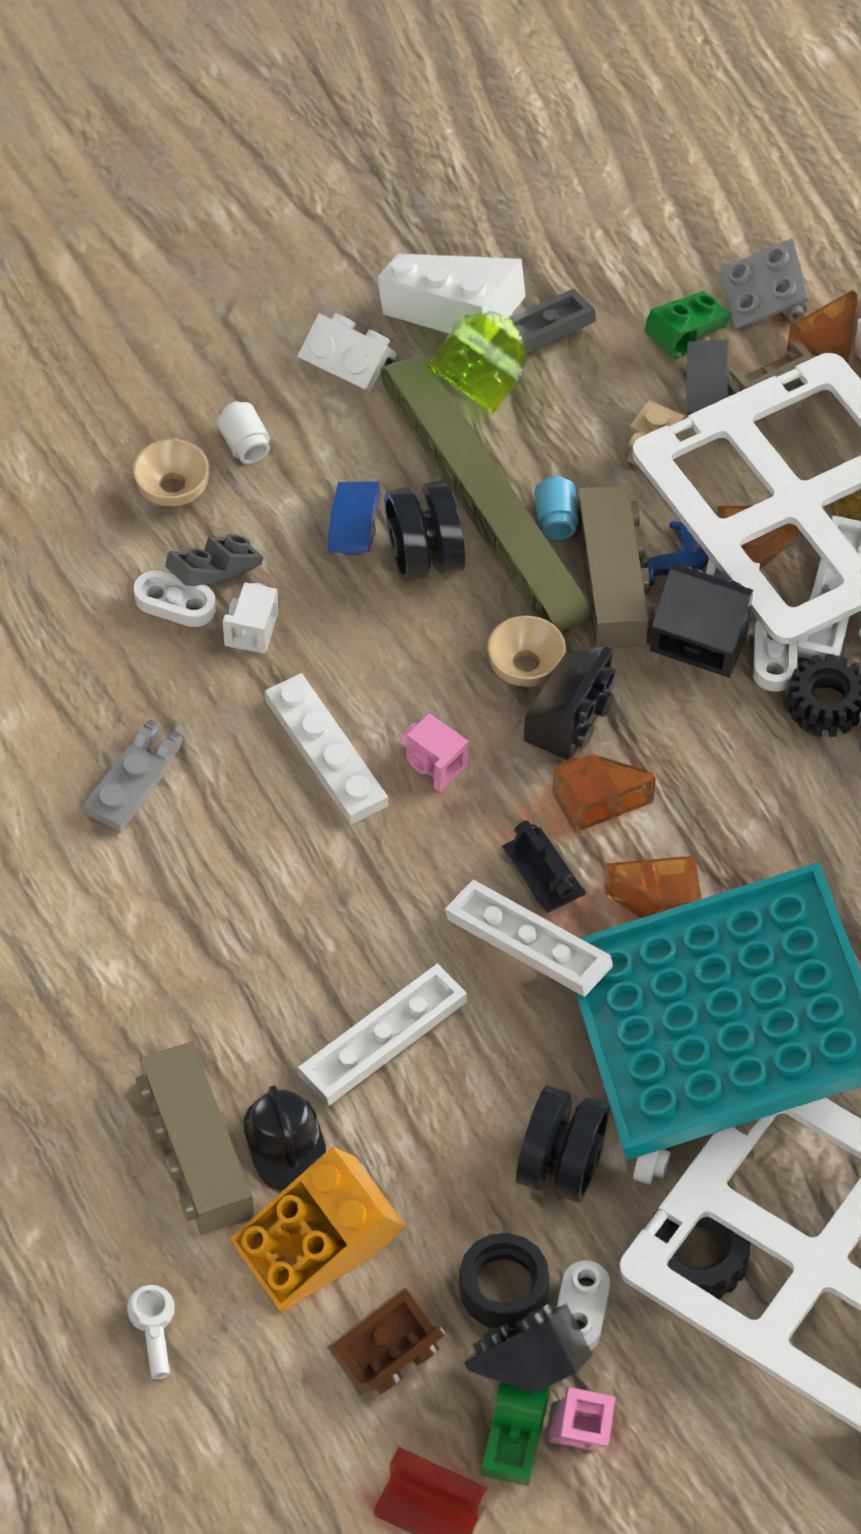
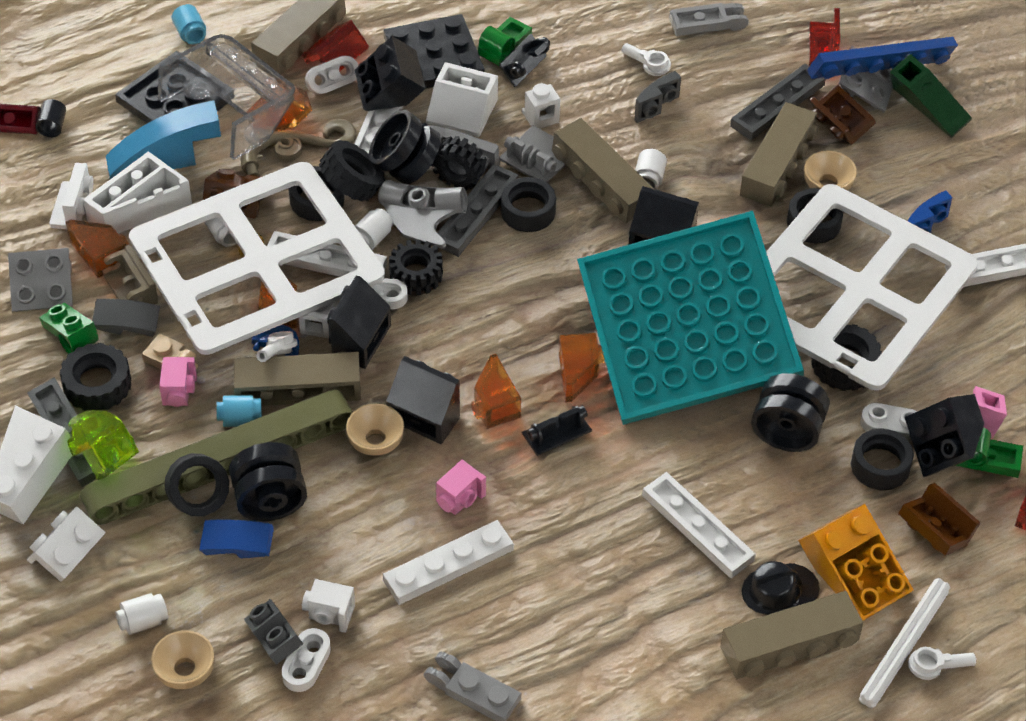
camera: 90 degrees left, 5 degrees down
(190, 1287) = (904, 643): none -> white axle
(402, 449) = (221, 488): none -> black tyre
(529, 938) = (623, 432): white plate -> none
(600, 437) = (177, 380): none -> bright pink brick
(606, 331) = (93, 357): none -> black tyre
(665, 536) = (279, 344): none -> white plate

